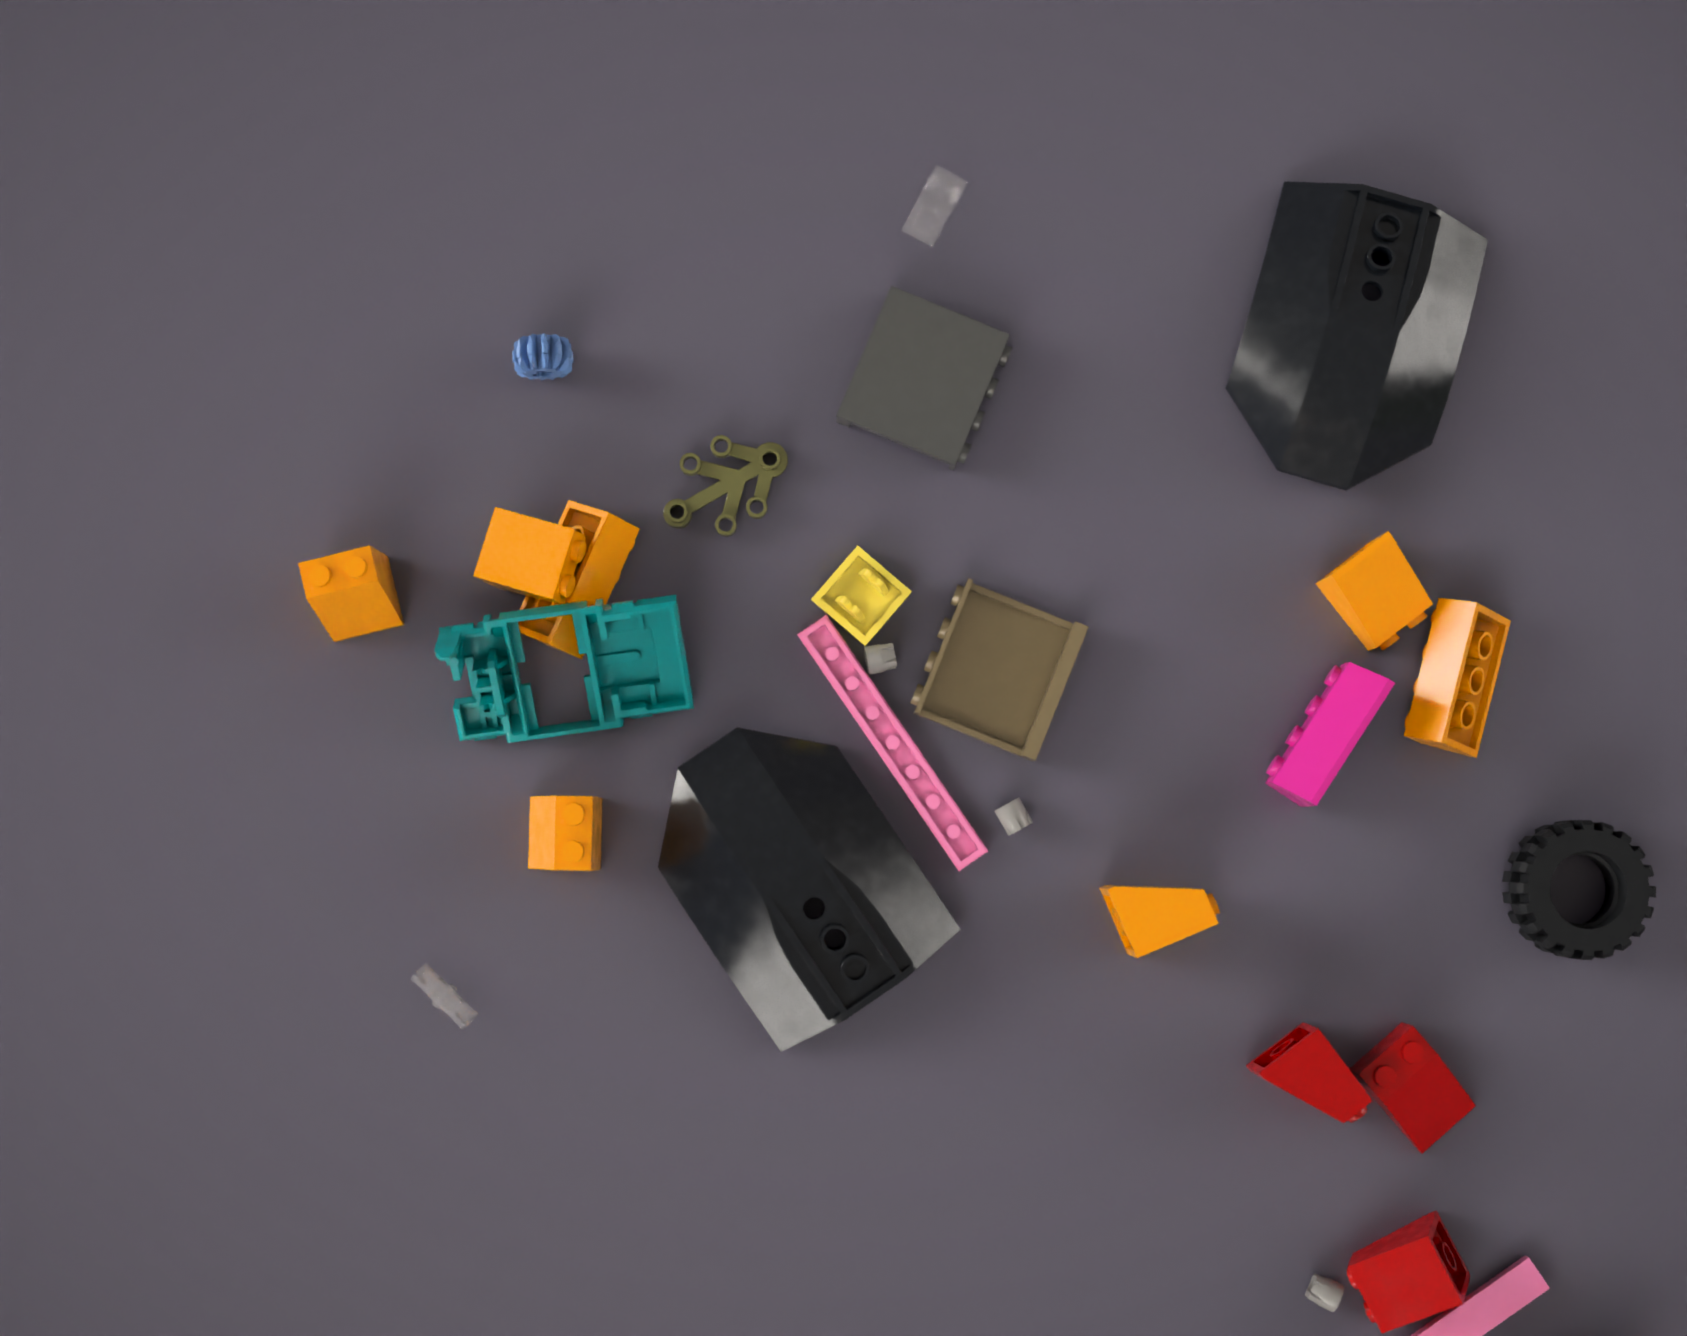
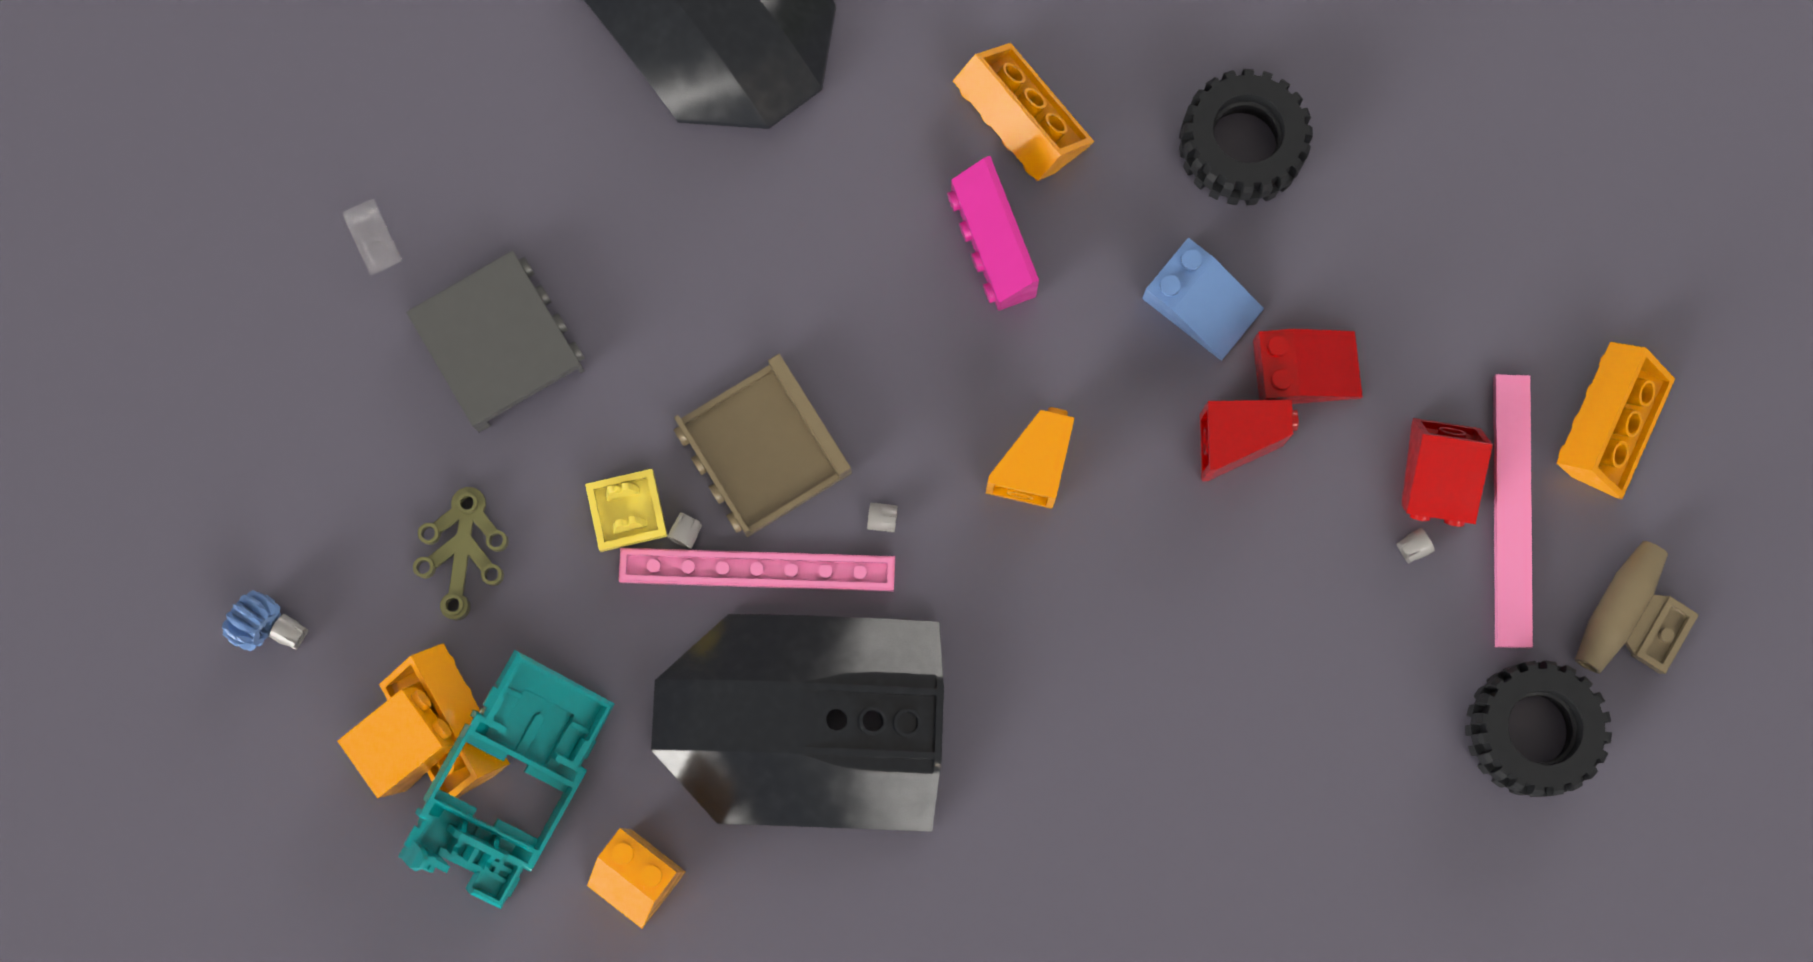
camera: 50 degrees left, 5 degrees down
(352, 592) = (318, 908): light orange slope -> none
(556, 393) = (288, 632): none -> light grey hose
(1376, 592) = (915, 122): light orange slope -> none
(1405, 954) = (1203, 299): none -> medium blue slope

